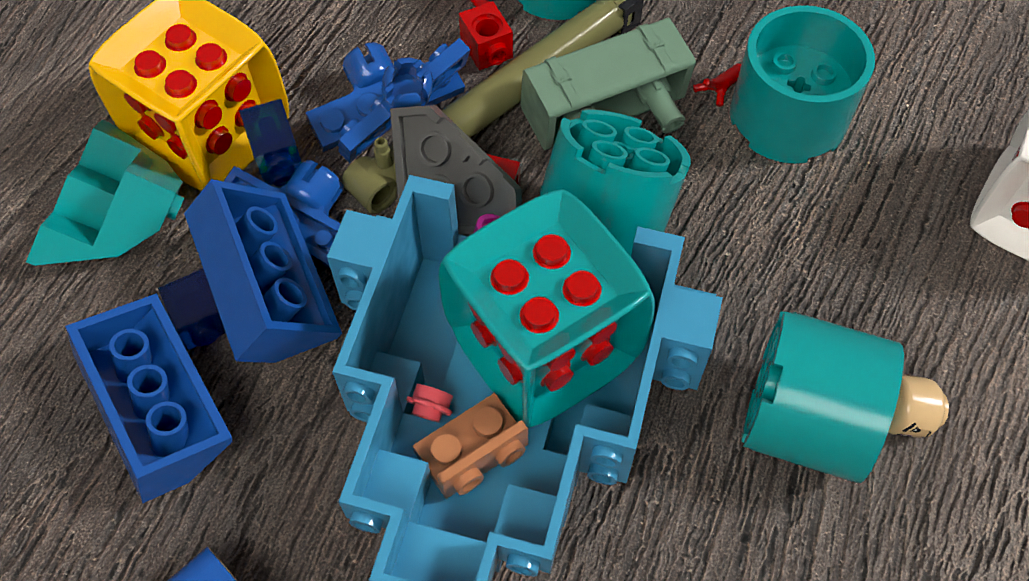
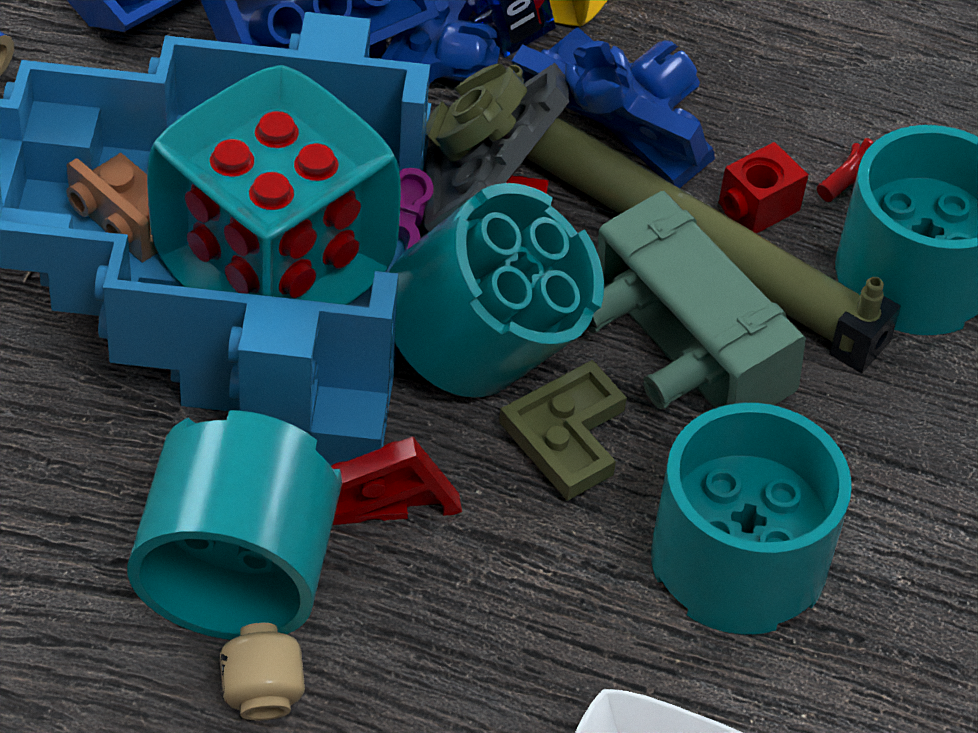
camera: 75 degrees right, 10 degrees down
(404, 152) = (478, 113): none -> olive plate
(707, 193) = (556, 423): none -> olive plate
(748, 295) = (389, 482): none -> red wing

